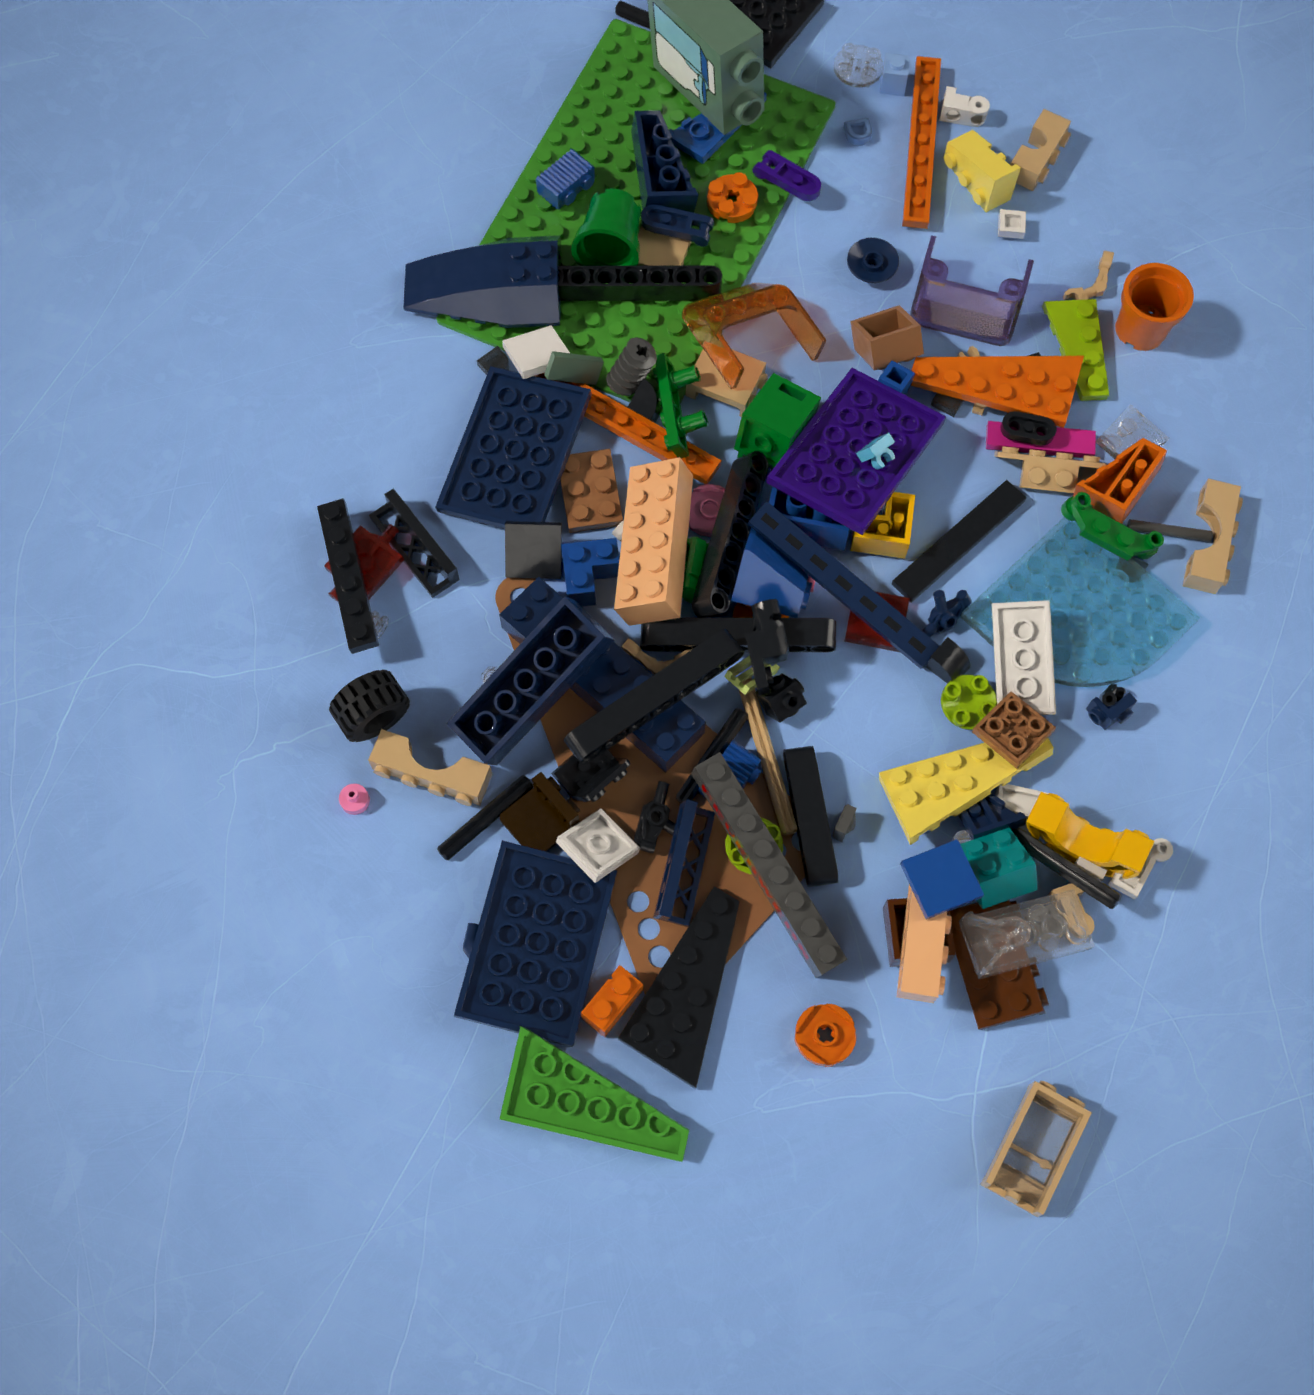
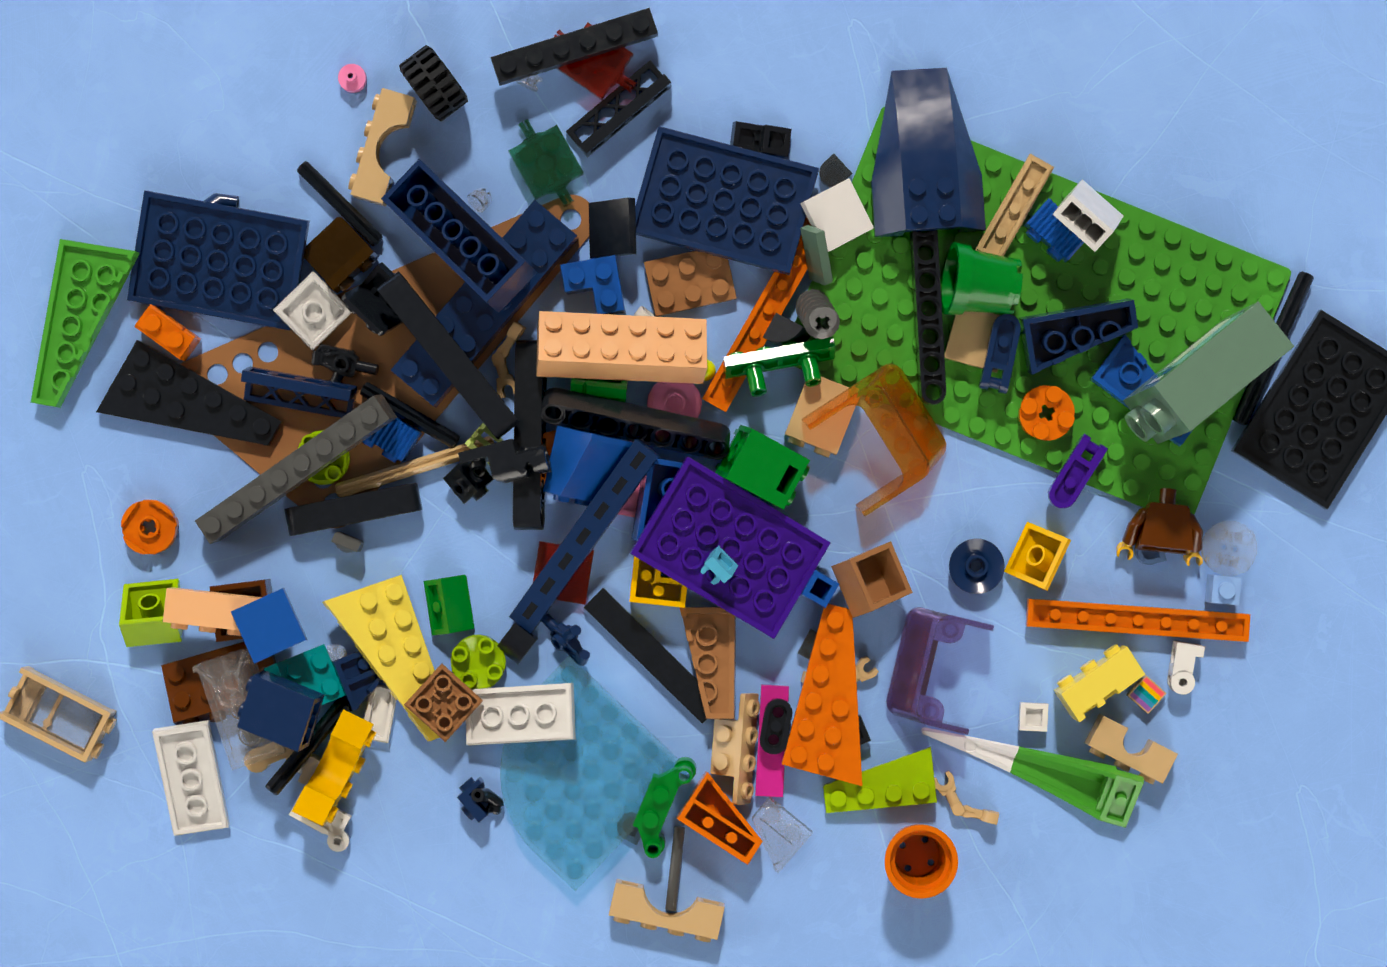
camera: 85 degrees right, 20 degrees up
(456, 417) = (761, 138): none -> black slope
(461, 614) = (546, 162): none -> clear green plate
(537, 212) = (1015, 206): none -> tan tile
(554, 142) = (1088, 215): none -> white brick
(841, 112) = (1164, 529): none -> reddish brown torso
(865, 209) = (1037, 556): none -> yellow slope
(911, 728) = (449, 605): none -> green panel
(920, 1035) = (143, 614): none -> lime slope
(962, 481) = (713, 652): none -> medium nougat wing
(993, 136) = (1146, 694): none -> tile
(1032, 876) = (280, 710): none -> dark blue brick
(1073, 183) = (1086, 784): none -> bright green plate
(1102, 998) = (191, 778): none -> white tile

